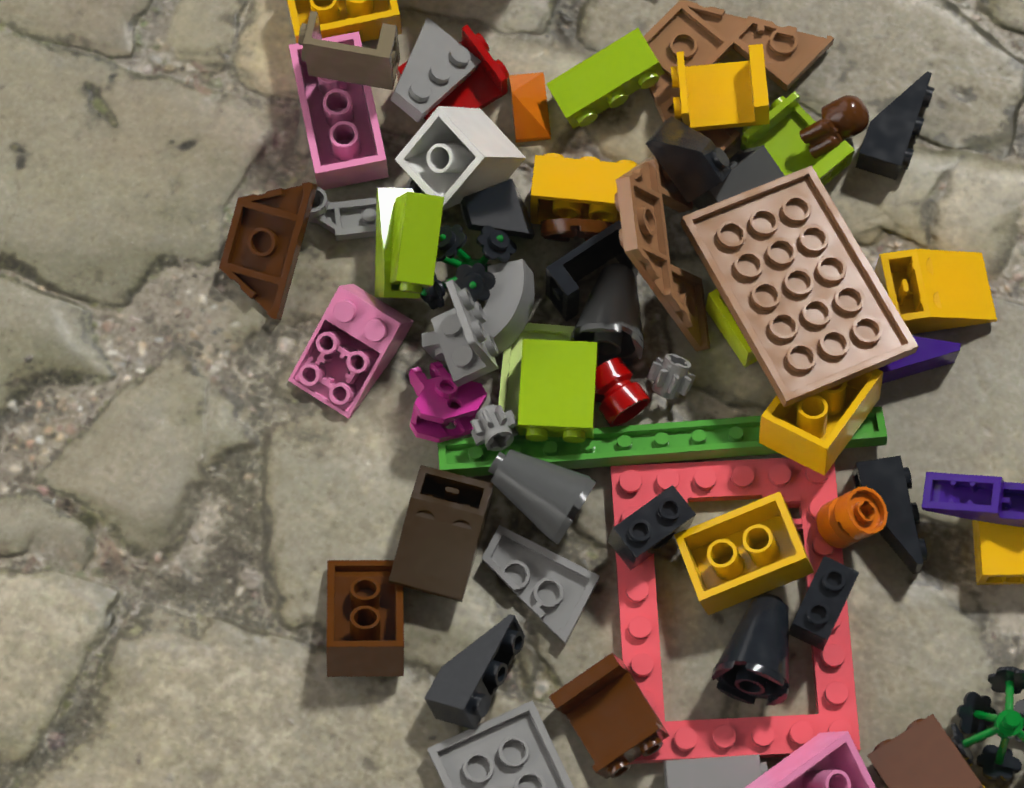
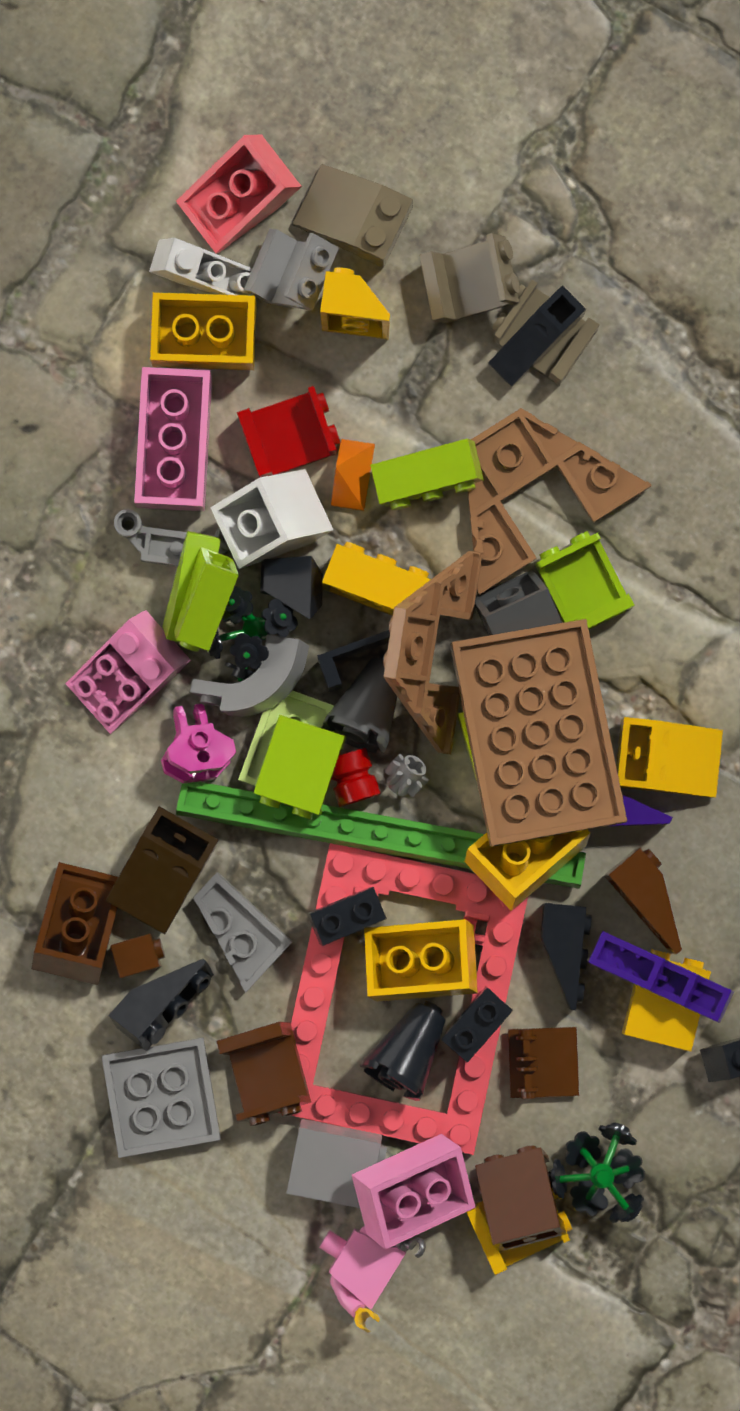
camera: 15 degrees right, 15 degrees up
(267, 243) = (76, 553): reddish brown wing -> none
(350, 62) = (219, 423): dark tan panel -> none
(432, 71) = (269, 424): light grey wing -> none
(438, 632) = (137, 955): none -> reddish brown brick
(463, 339) = (227, 702): light grey bracket -> none
(494, 427) = (233, 786): light grey gear -> none
(541, 490) = (260, 857): dark grey cone -> none
(566, 228) = (363, 616): reddish brown tile -> none
(688, 158) = (474, 583): black slope -> none
(722, 92) = (528, 517): yellow panel -> none
(839, 122) = (631, 572): reddish brown piece -> none
(852, 517) = (525, 953): orange wheel -> none
(889, 133) = (673, 595): black slope -> none
(904, 633) = (543, 1062): none -> reddish brown hinge
(960, 428) = (645, 891): none -> reddish brown slope

